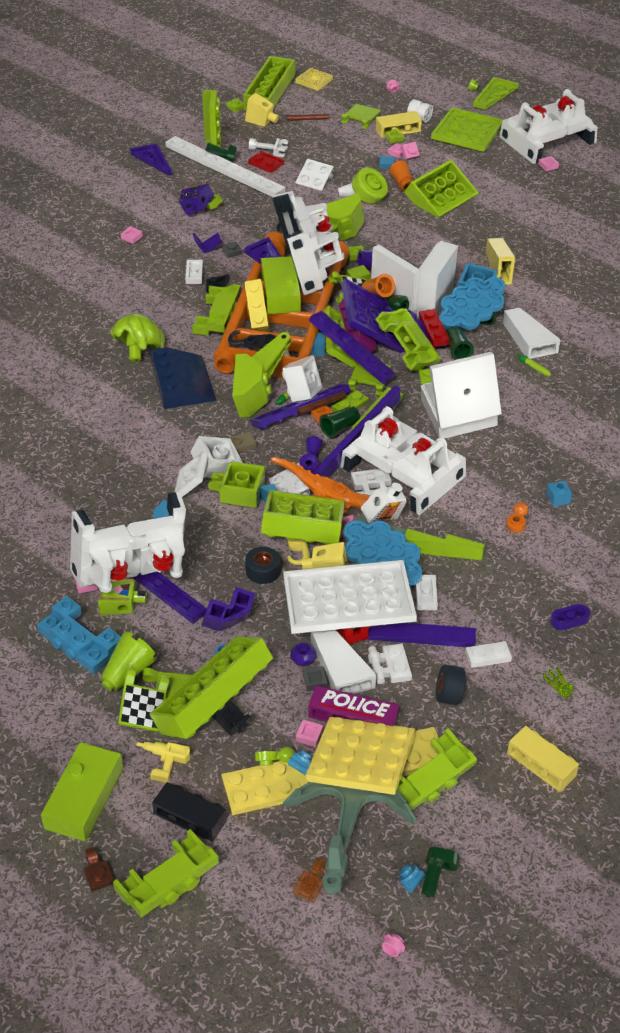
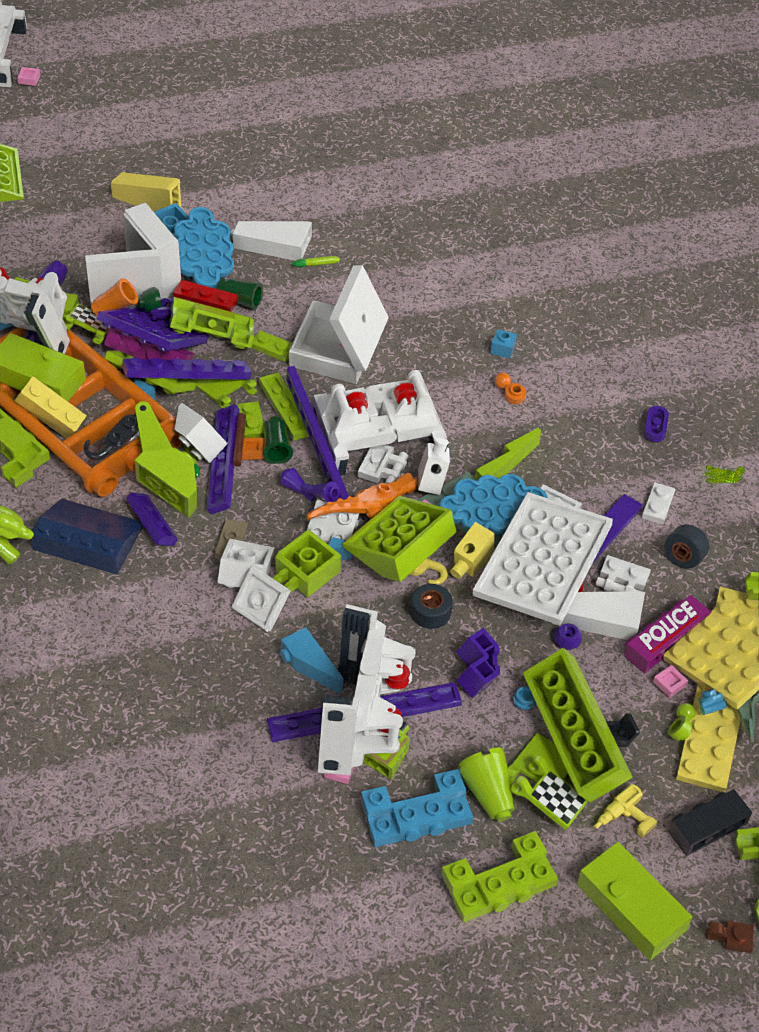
camera: 60 degrees left, 5 degrees up
(50, 711) = (502, 885): none -> lime bracket
(217, 399) = (151, 519): none -> dark purple plate
(314, 677) = (607, 642): dark grey plate -> none

